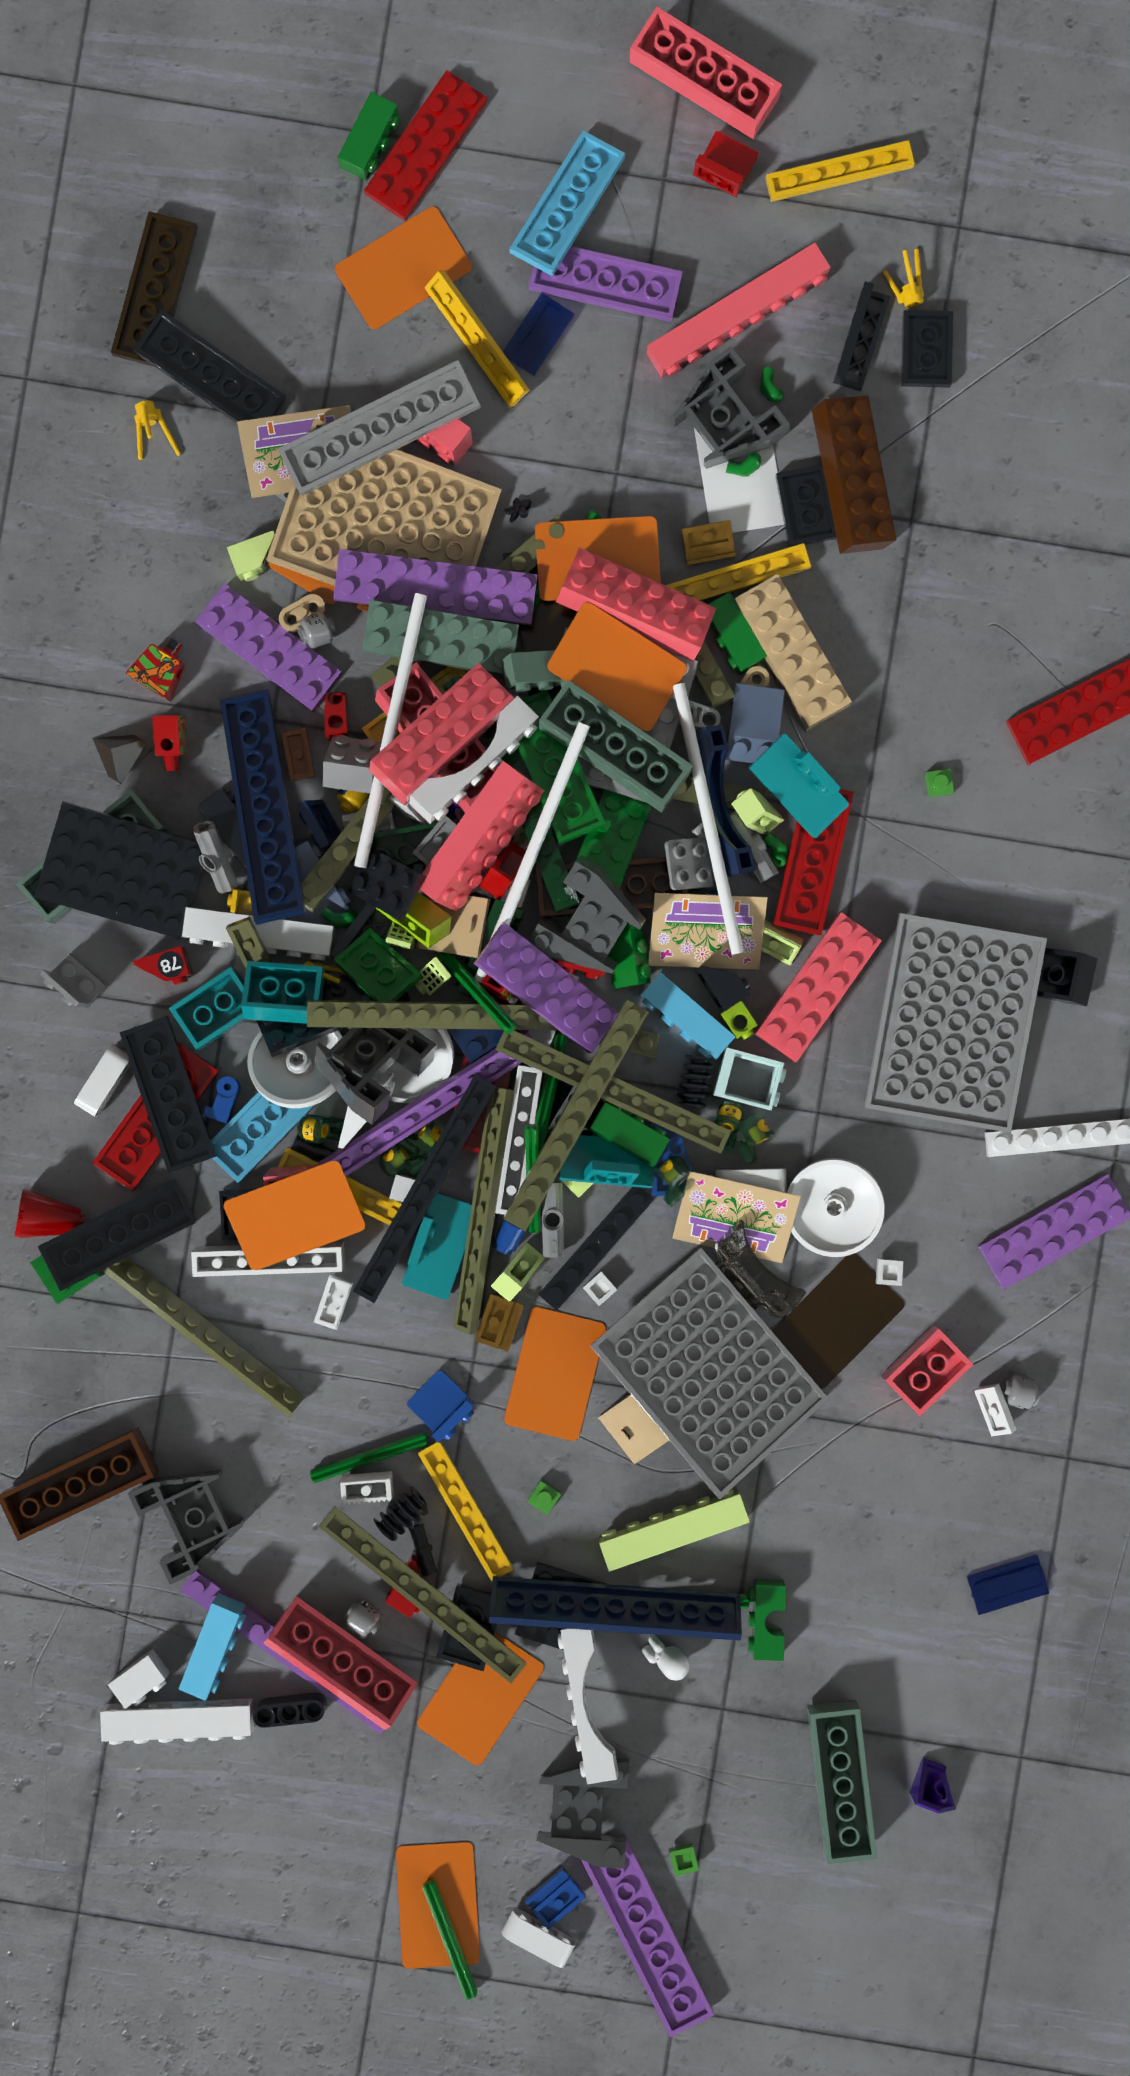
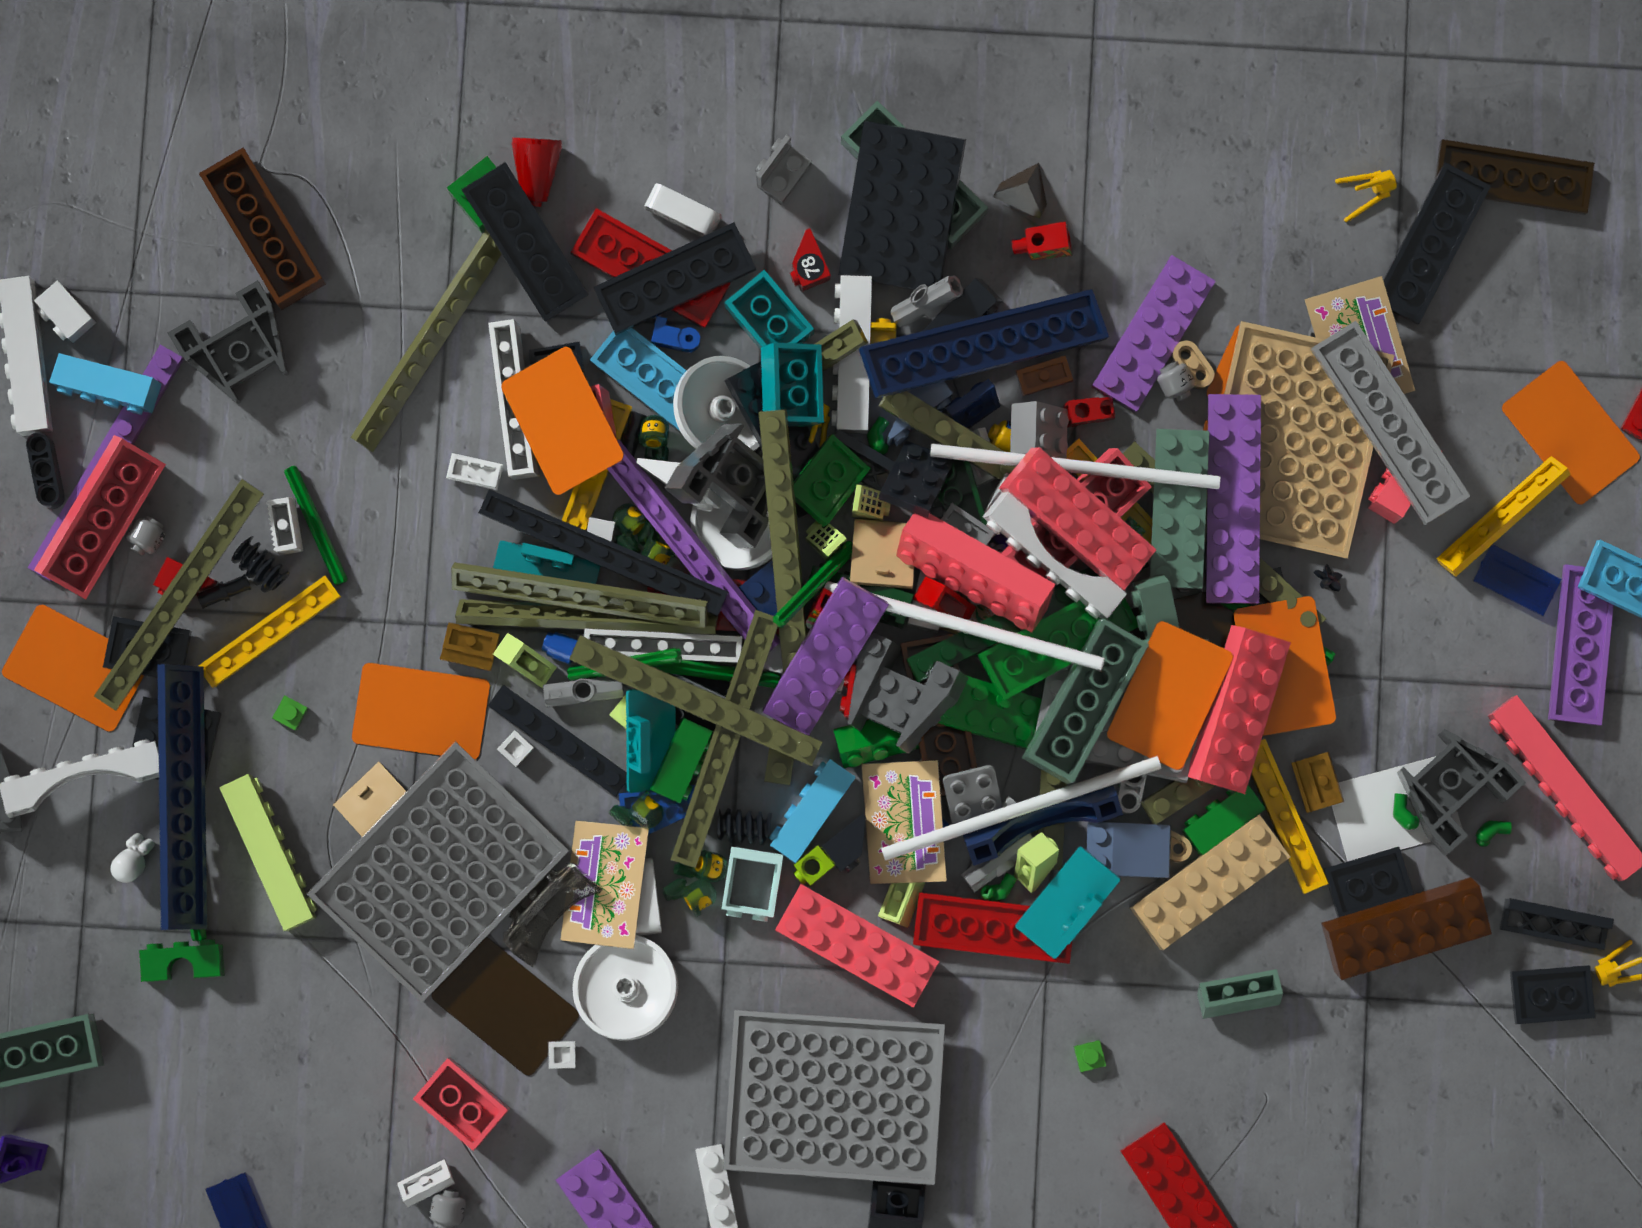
camera: 85 degrees right, 5 degrees down
(159, 669) = (1117, 223): torso -> none
(251, 556) = (1246, 305): yellowish green slope -> none
(424, 921) = (882, 524): lime brick -> none
(441, 1405) = (377, 594): blue bracket -> none
(463, 1214) = (579, 595): none -> olive plate
(898, 636) = (1240, 993): none -> sand green brick

